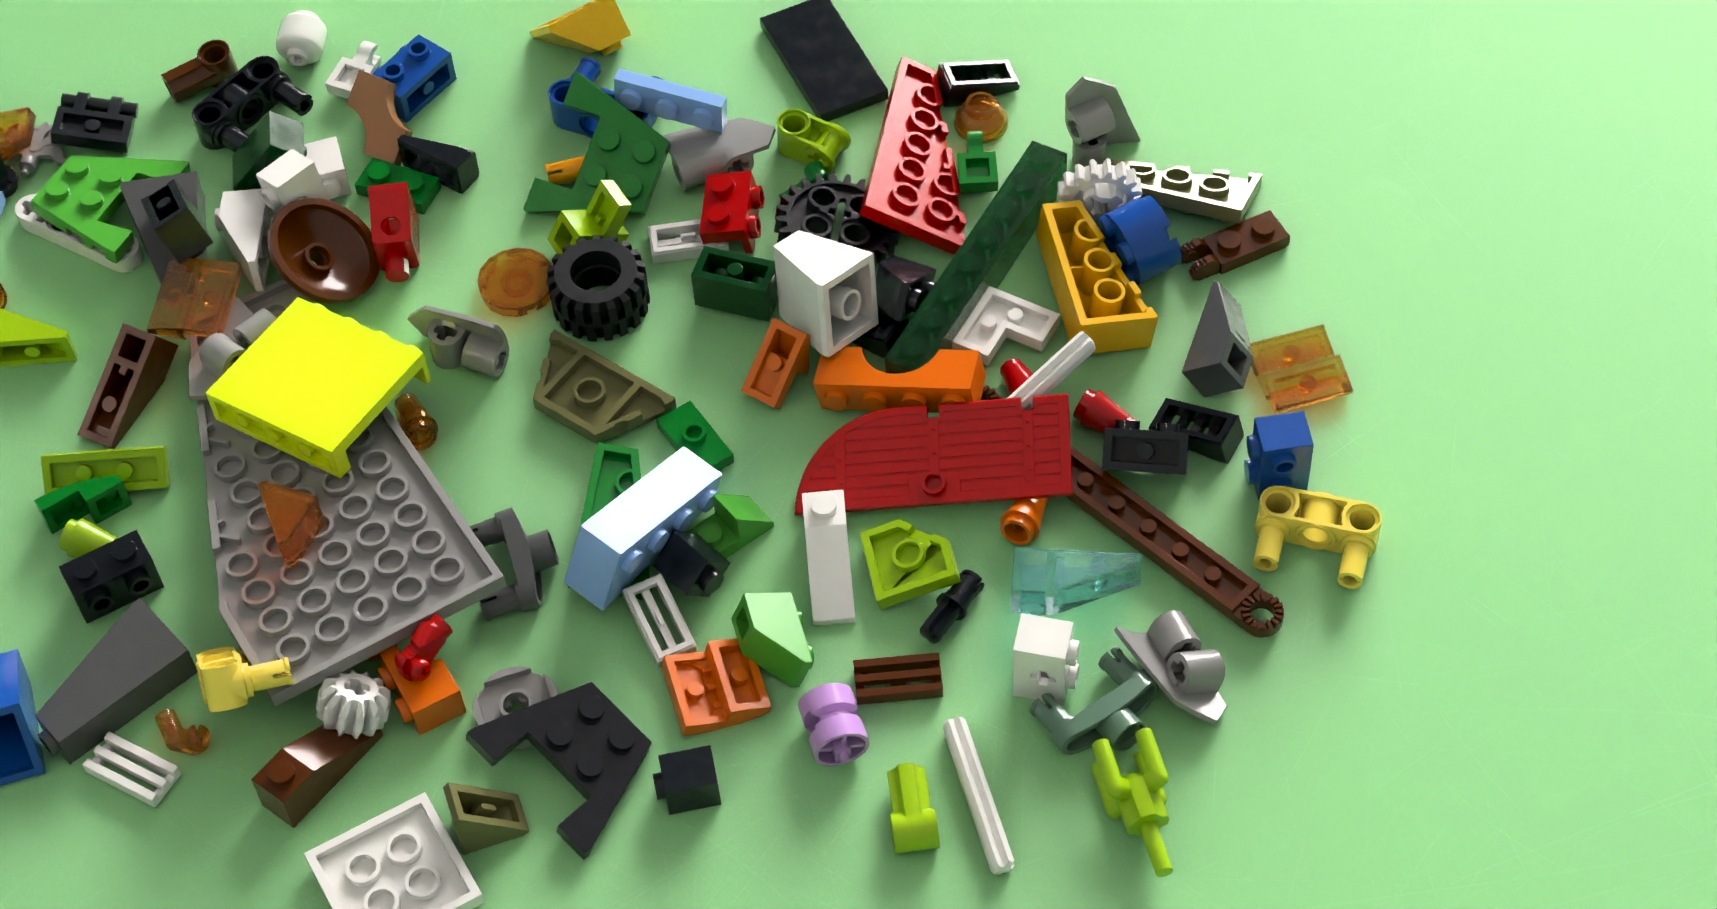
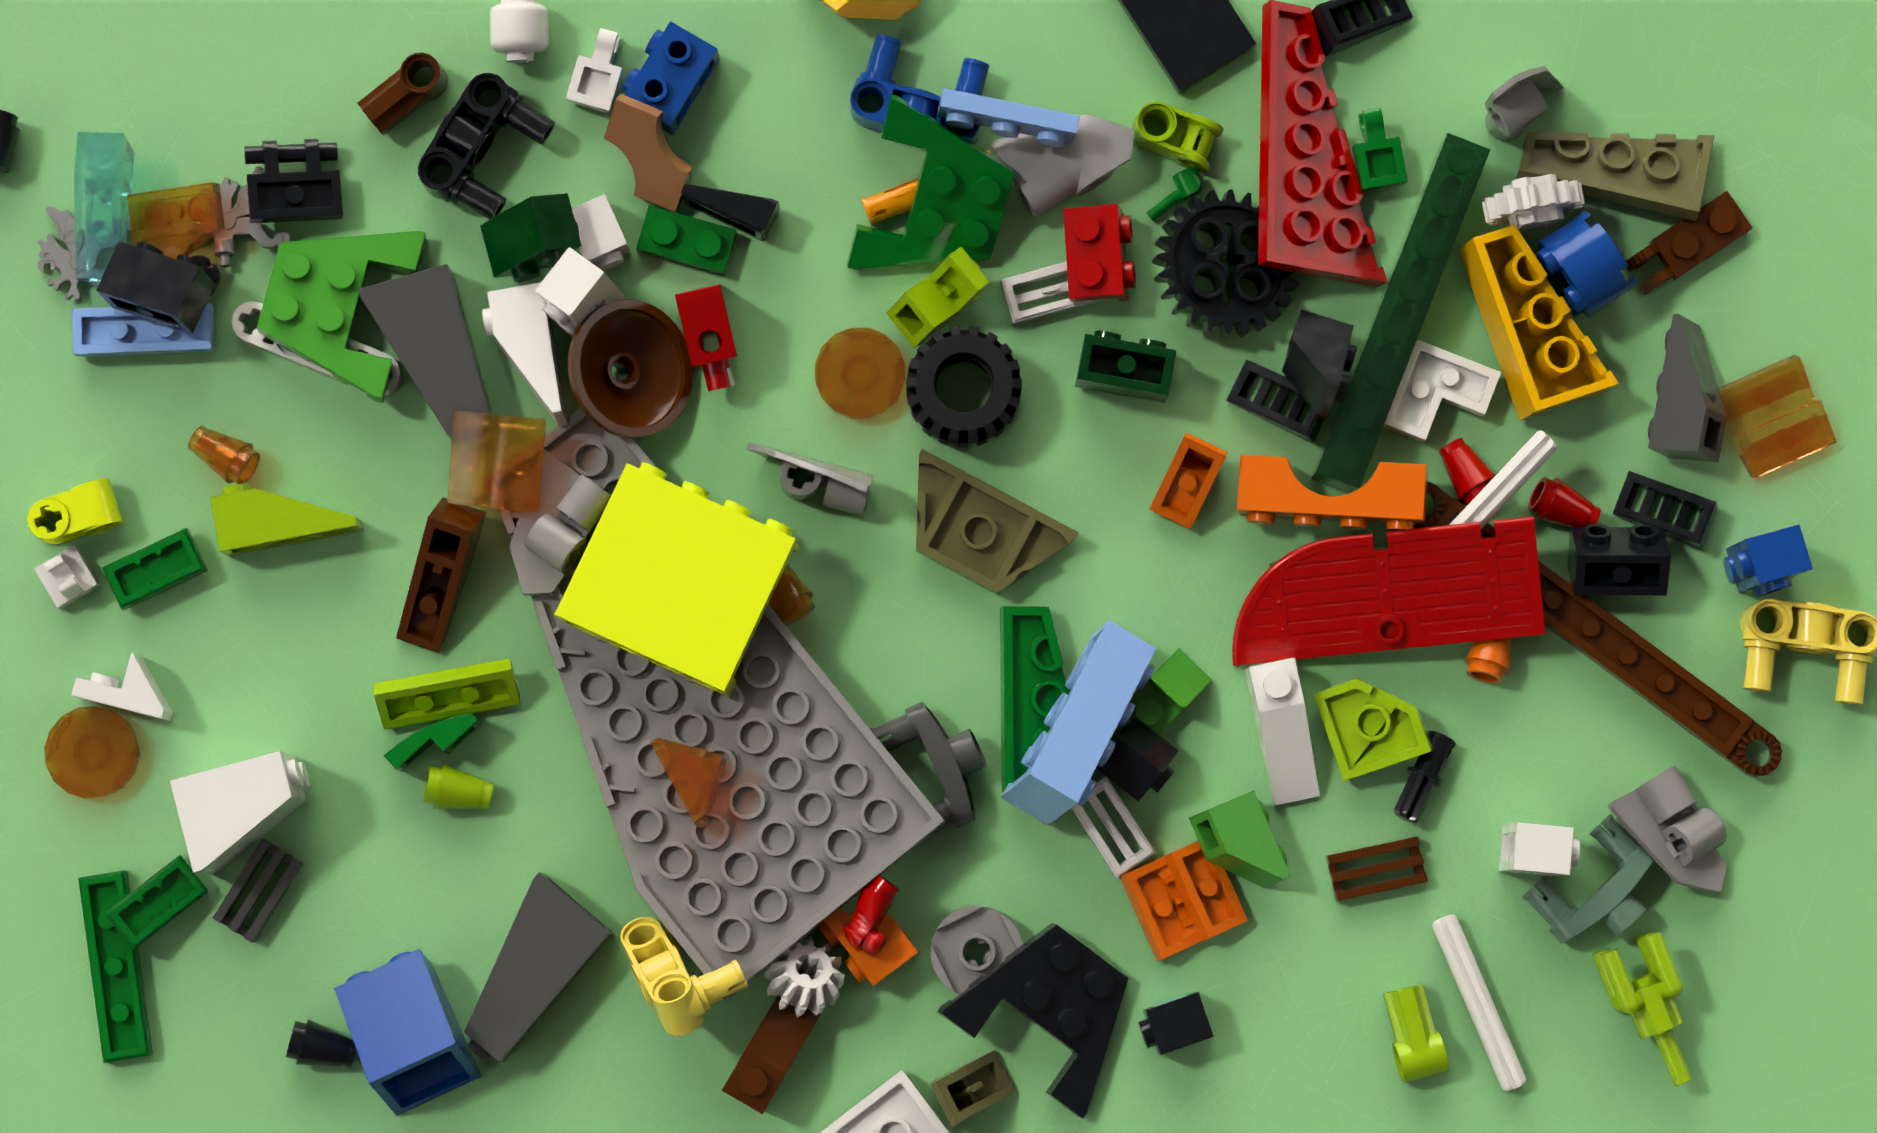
camera: 15 degrees left, 30 degrees up
(106, 753) = (539, 1051): white tile -> none
(111, 576) = (493, 838): black brick -> none
(177, 222) = (454, 366): black hinge -> none
(180, 739) = (620, 1024): clear orange arm -> none
(689, 428) = (1107, 579): green plate -> none
(825, 289) = (1235, 390): white slope -> none
(834, 727) = (1320, 943): lavender wheel -> none
(981, 113) = (1370, 74): clear orange piece -> none
(1064, 579) = (1532, 735): clear light blue slope -> none

